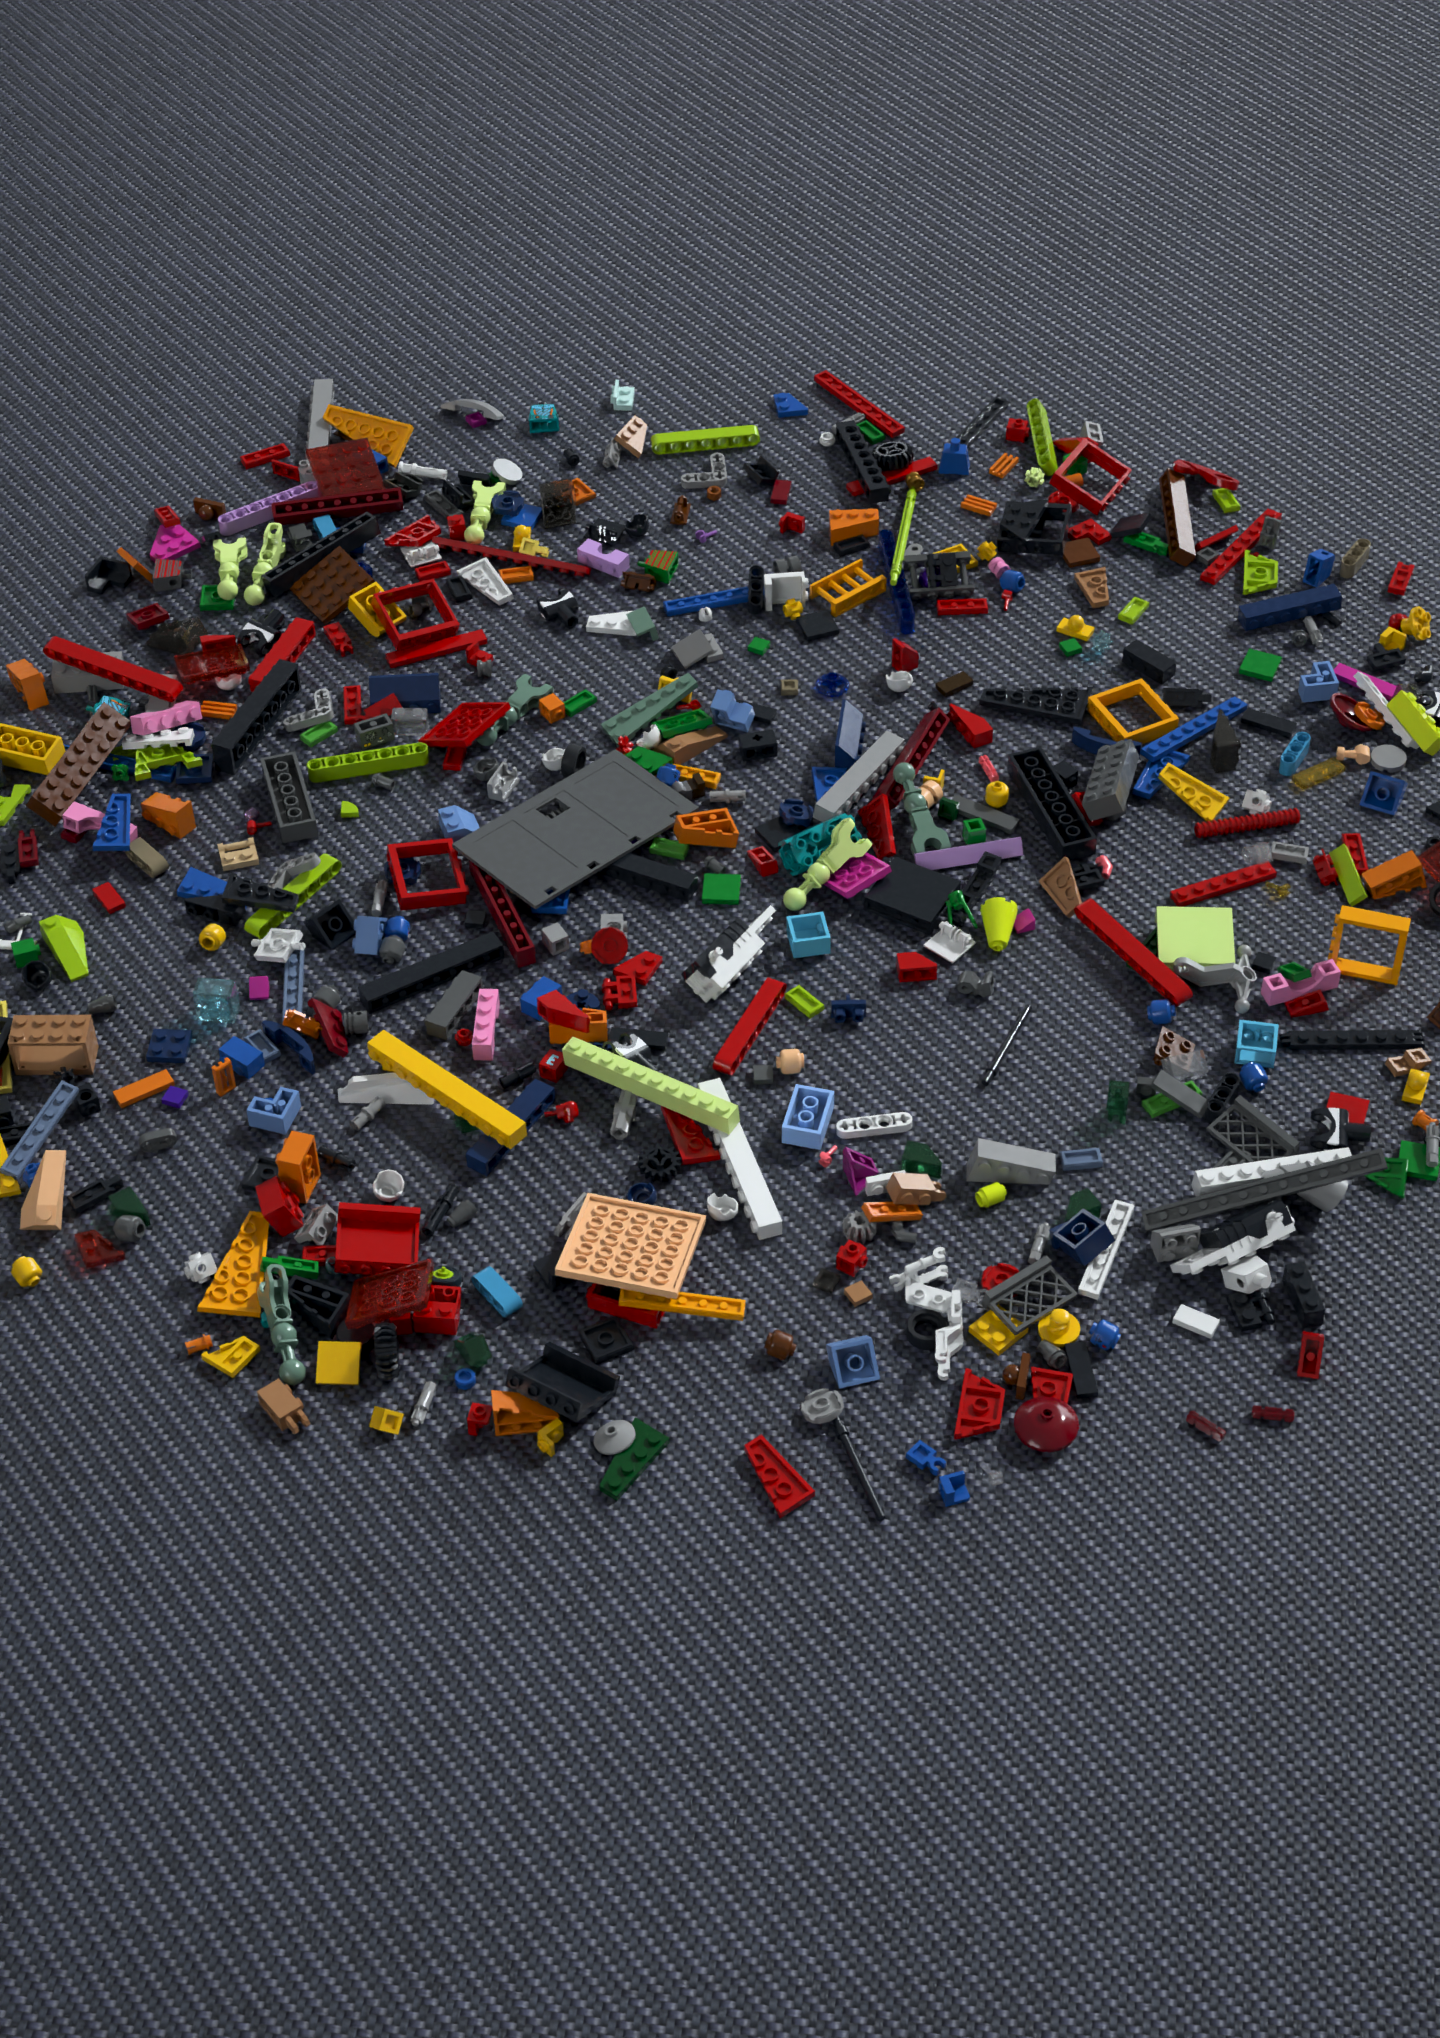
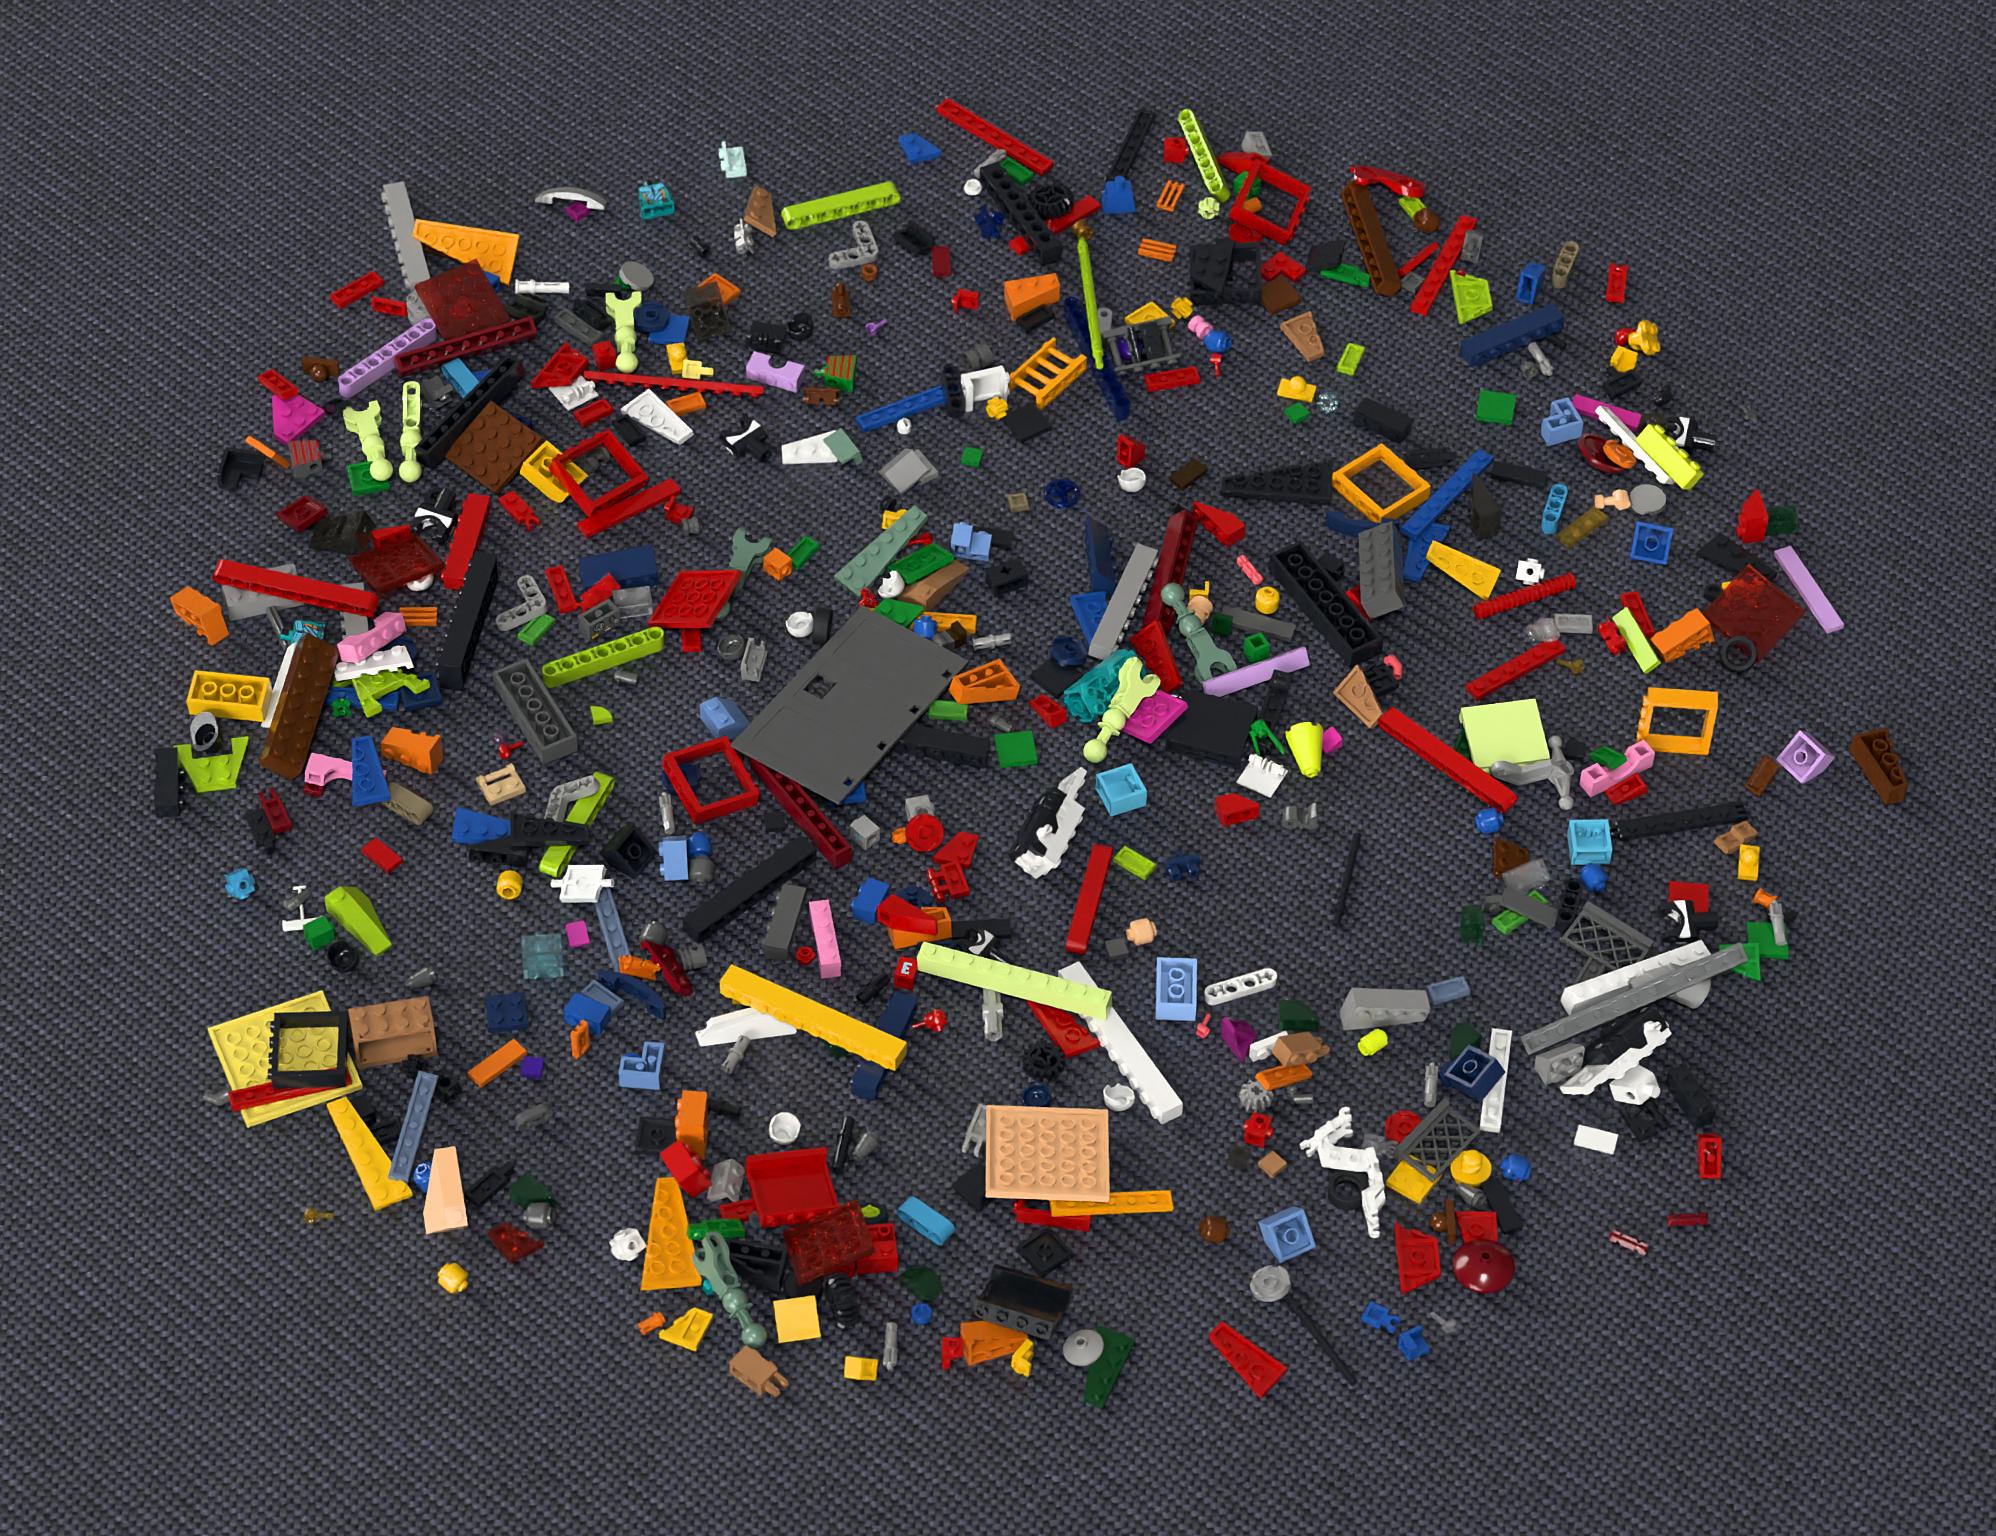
camera: 15 degrees left, 5 degrees up
(831, 466) = (995, 219): none -> clear blue hips
(1233, 508) = (1426, 220): none -> reddish brown head

